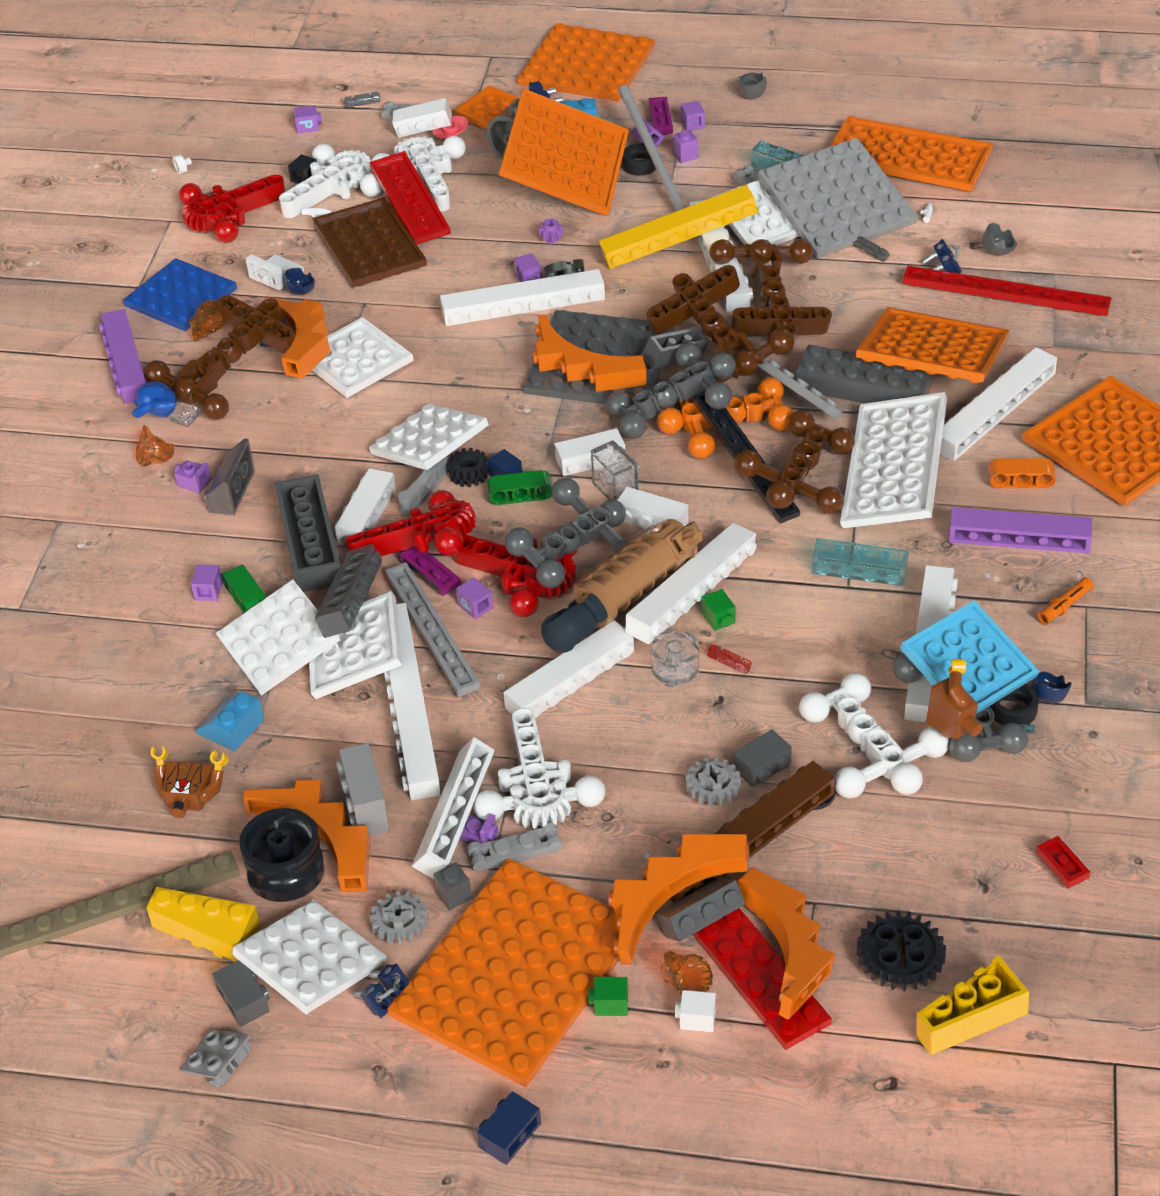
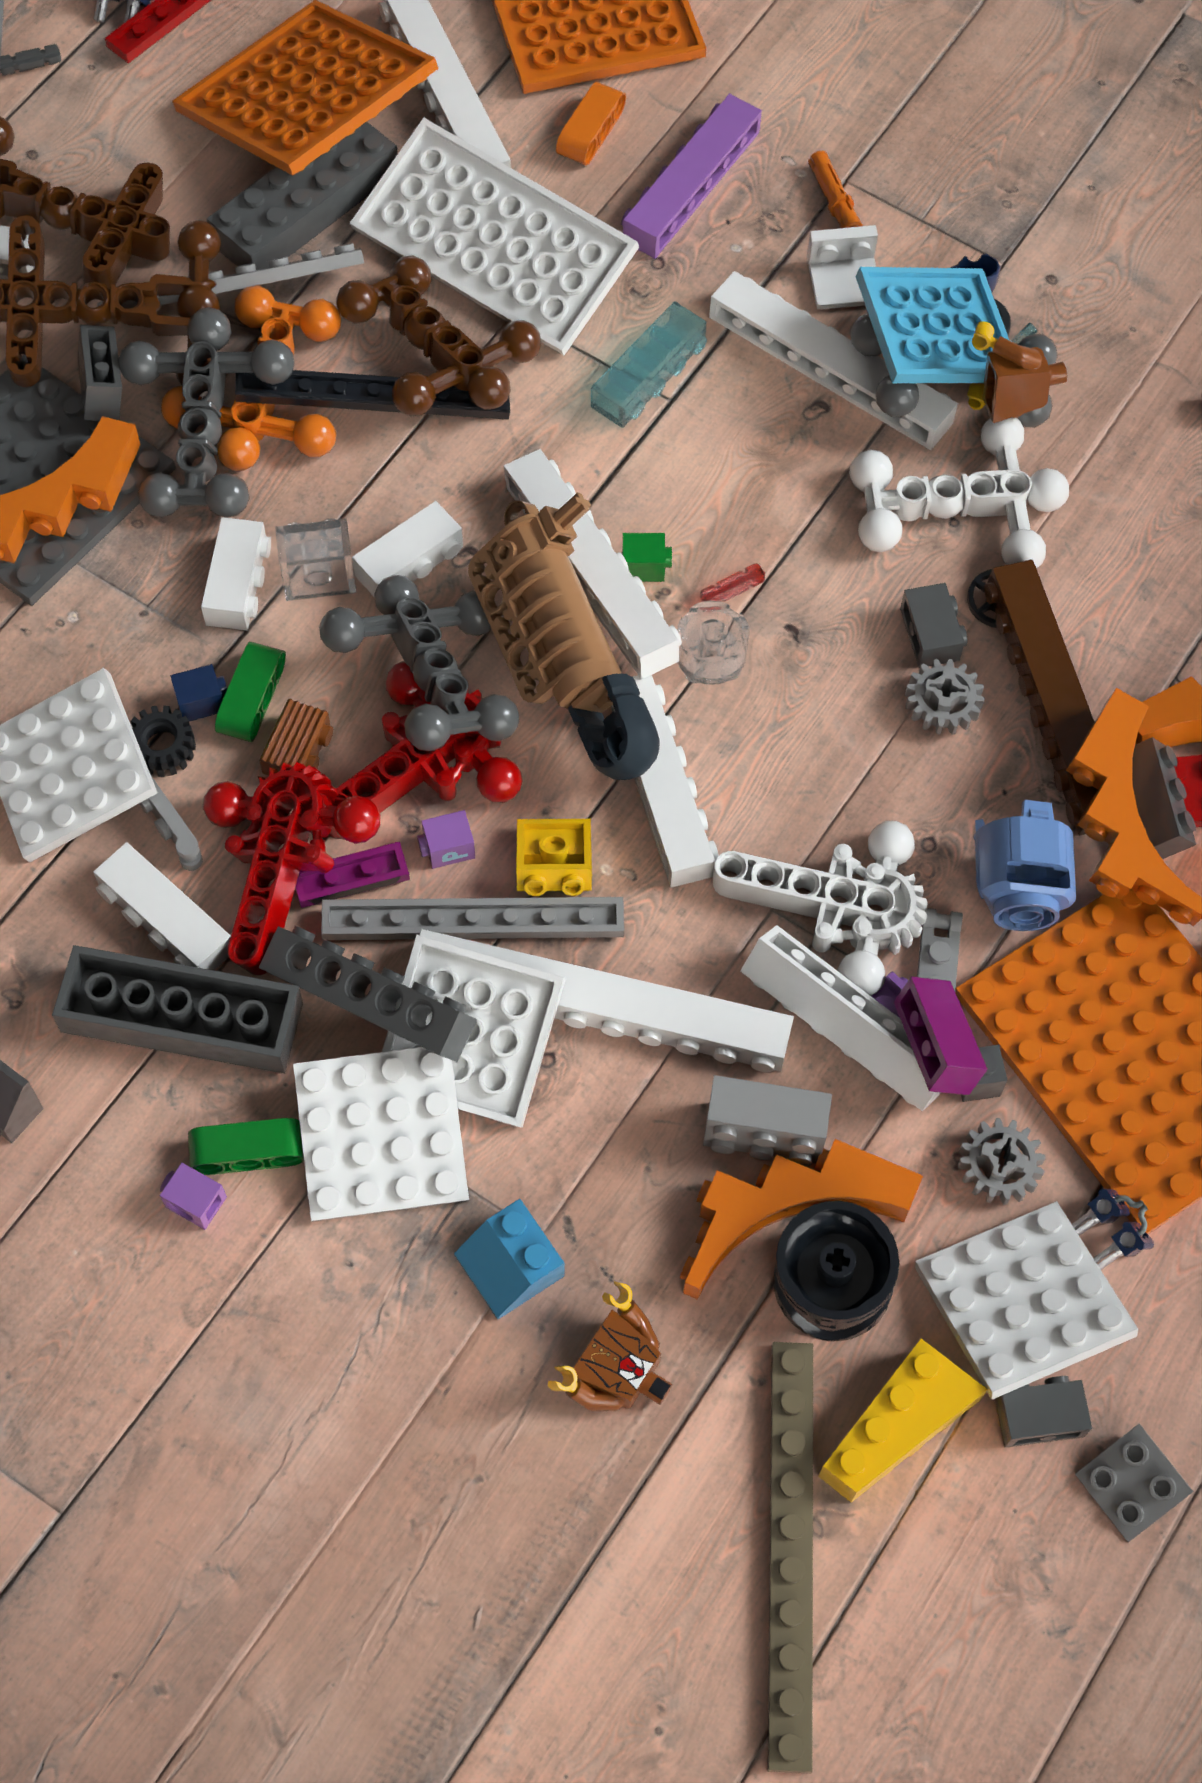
camera: 70 degrees left, 20 degrees up
(453, 840) = (940, 1036): none -> magenta brick
(489, 644) = (554, 856): none -> yellow plate
(497, 516) = (297, 737): none -> dark orange brick
(599, 849) = (1025, 867): none -> medium blue piece
(1015, 617) = (834, 262): none -> white bracket

